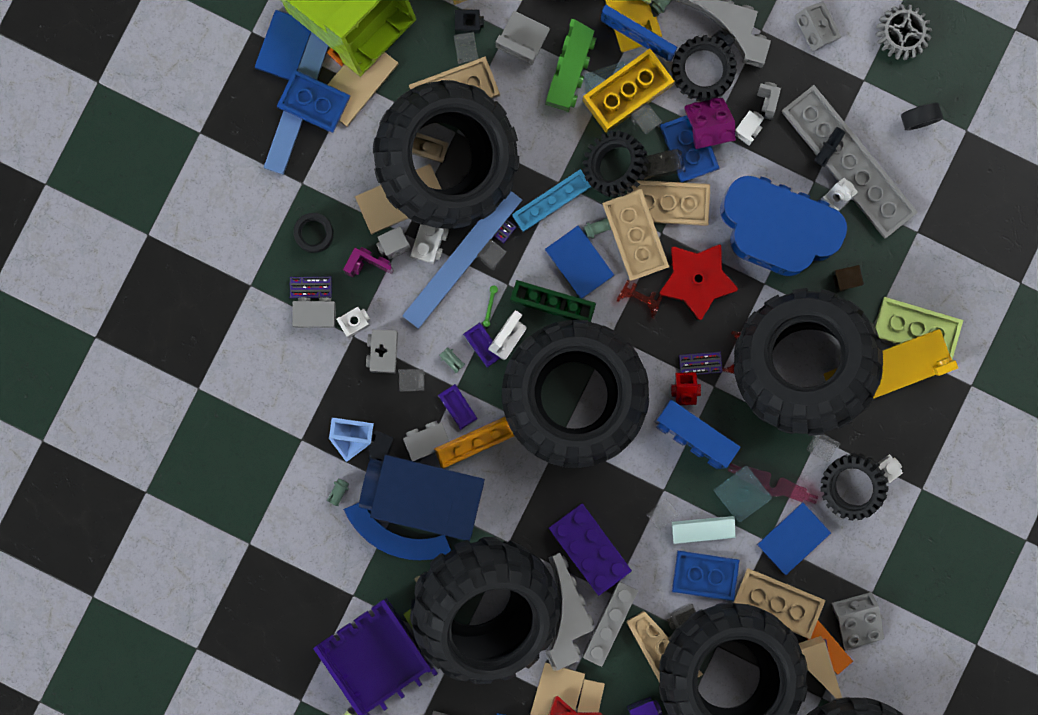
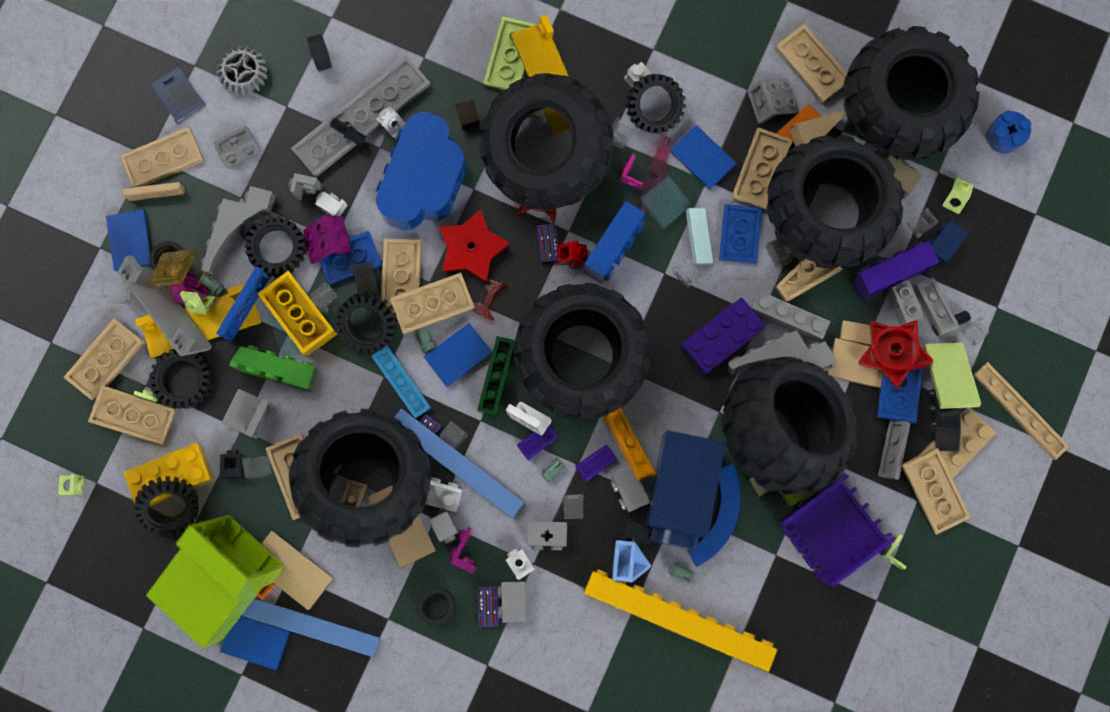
camera: 85 degrees left, 5 degrees down
(287, 489) = (681, 621): none -> yellow brick
(313, 101) = (309, 610): blue tile -> none
(493, 289) = (485, 433): bright green hinge -> none
(781, 451) = (625, 178): none -> dark pink bracket
(900, 667) = (812, 63): none -> tan plate

